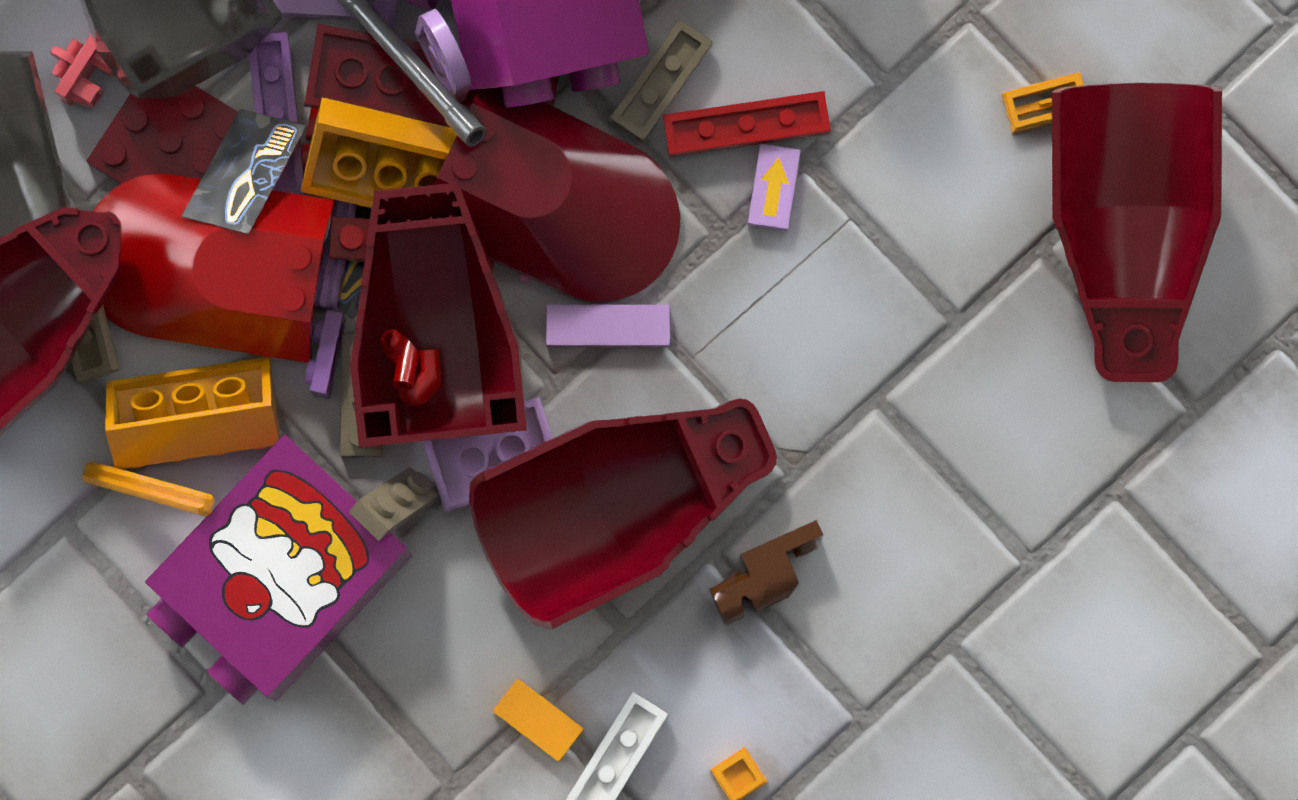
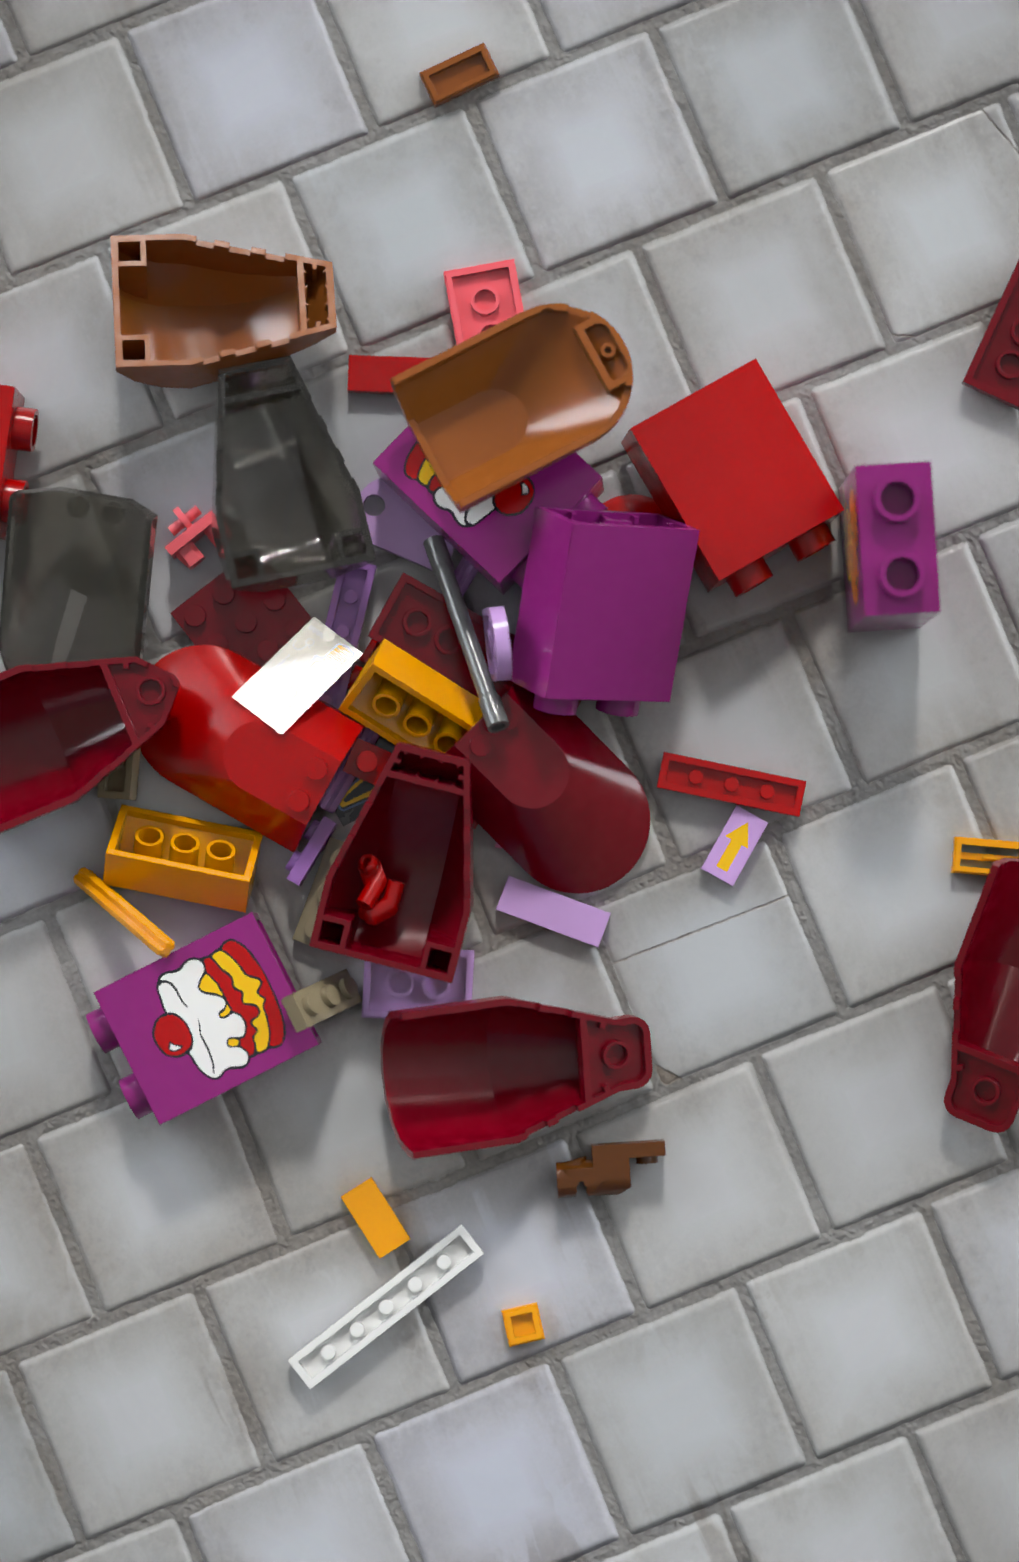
camera: 20 degrees right, 5 degrees up
(661, 81) = (673, 721): dark tan plate -> none

